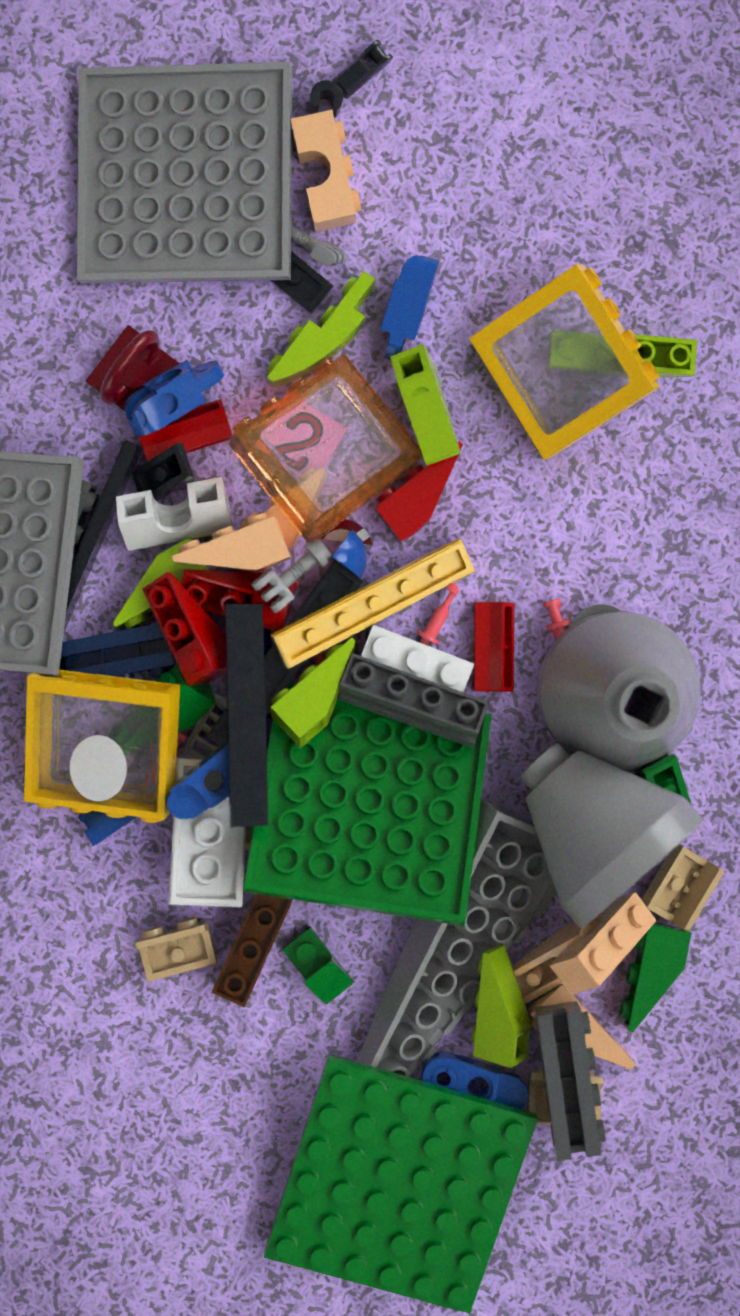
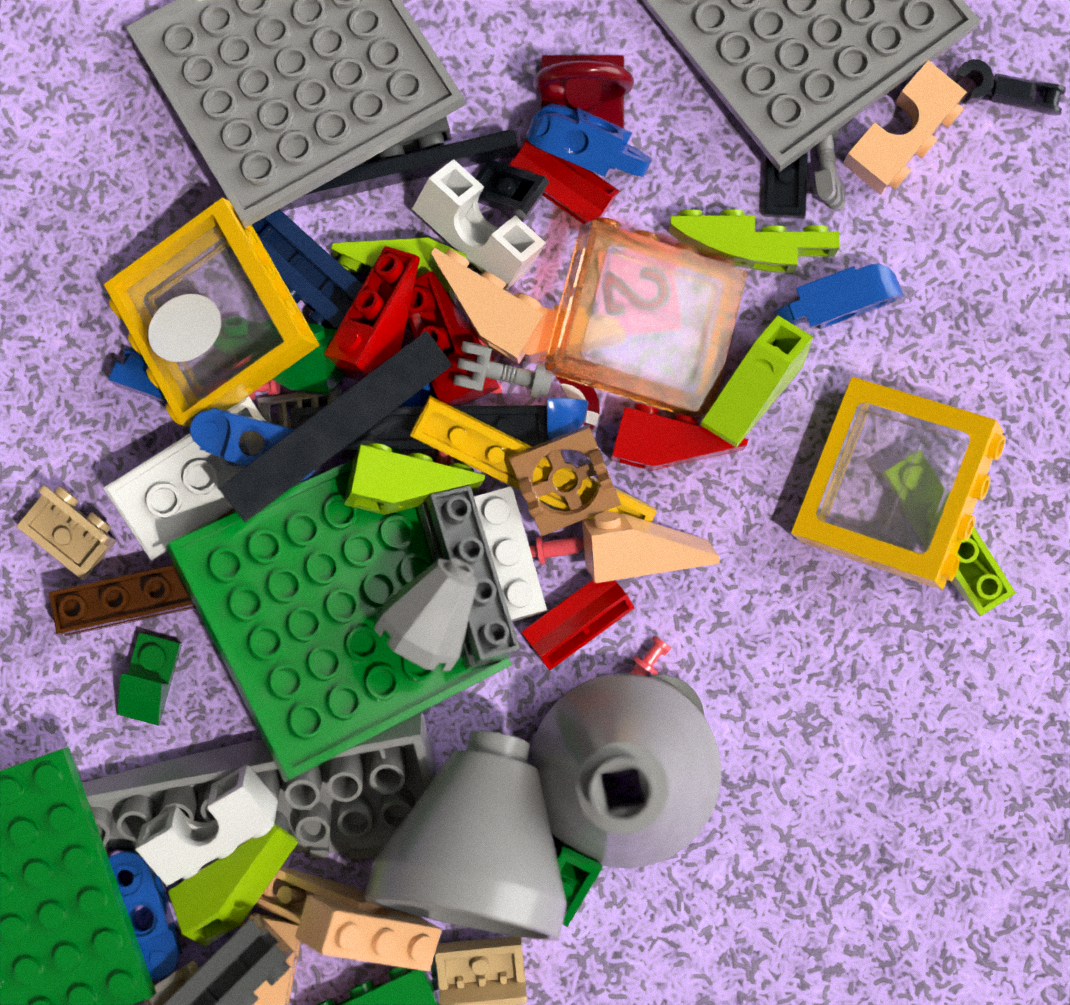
camera: 55 degrees right, 5 degrees down
(364, 601) = (548, 519): none -> medium nougat piece
(424, 746) = (430, 614): none -> light grey cone
(451, 1026) = (180, 846): none -> white arch
(474, 574) = (632, 547): none -> light nougat slope

